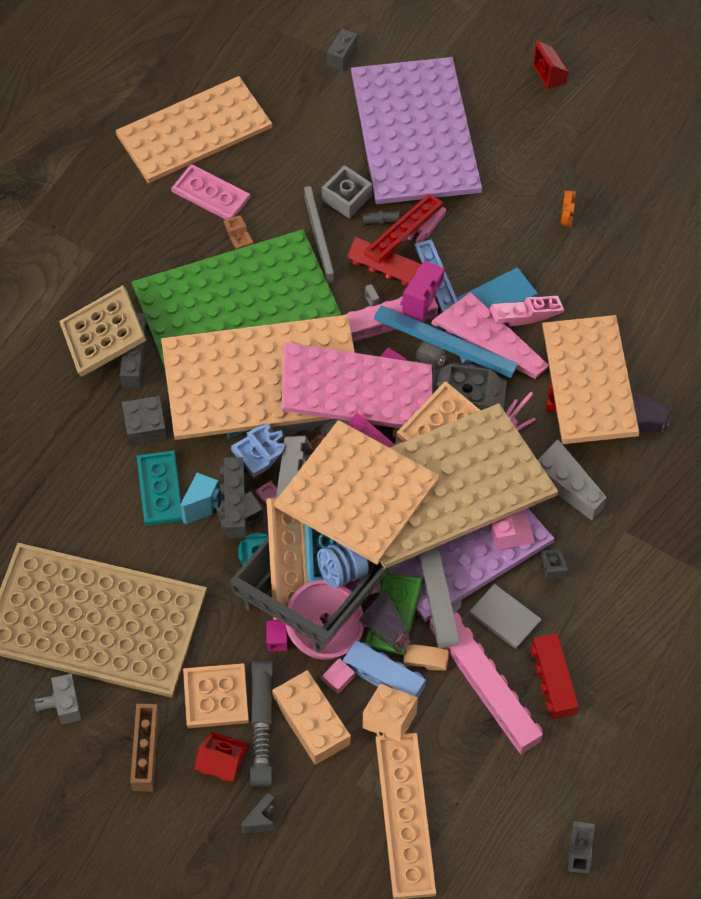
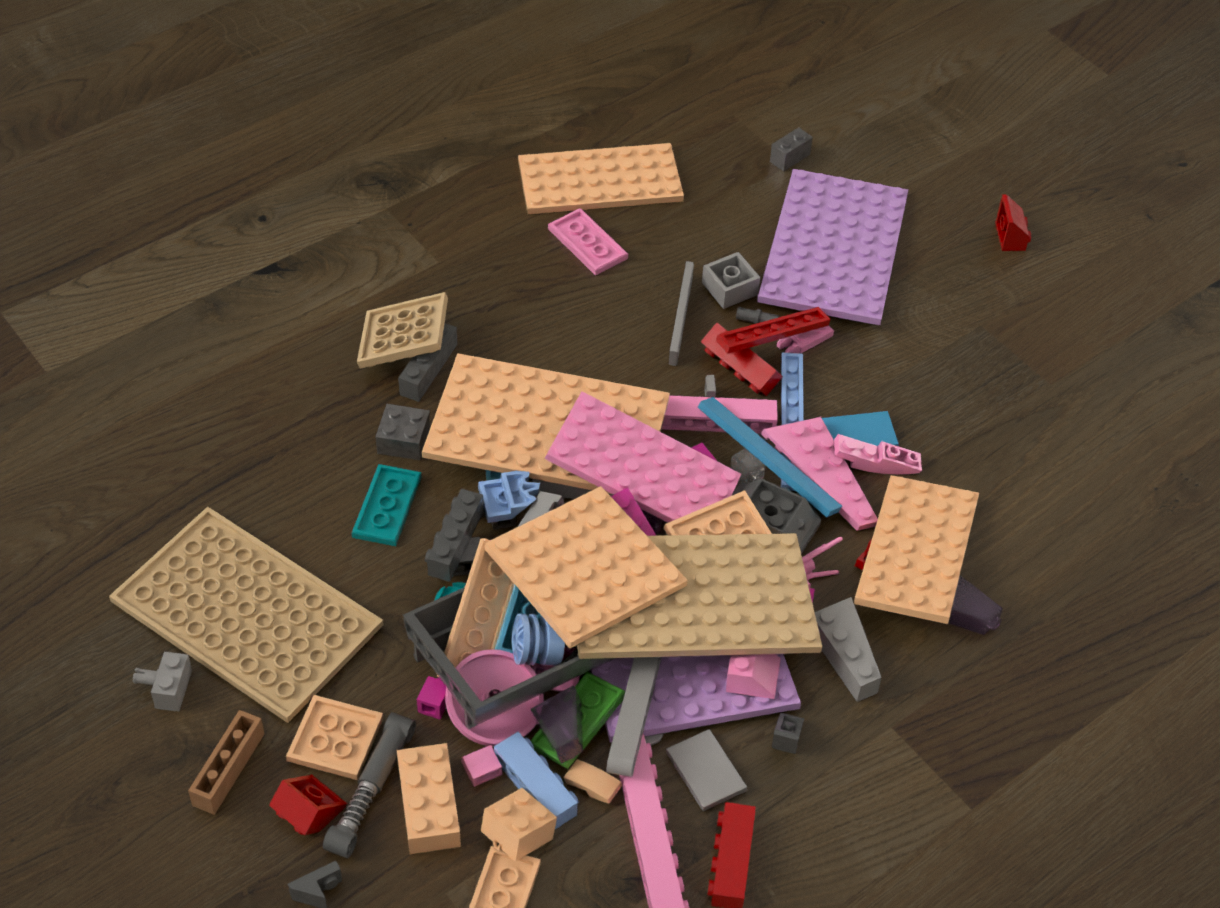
camera: 20 degrees right, 10 degrees down
(200, 499) = (418, 525): medium azure slope -> none
(237, 290) = (572, 337): bright green plate -> none
(238, 232) = (597, 287): nougat slope -> none
(422, 290) = (764, 395): dark pink wedge -> none
(568, 208) = (969, 369): orange plate -> none

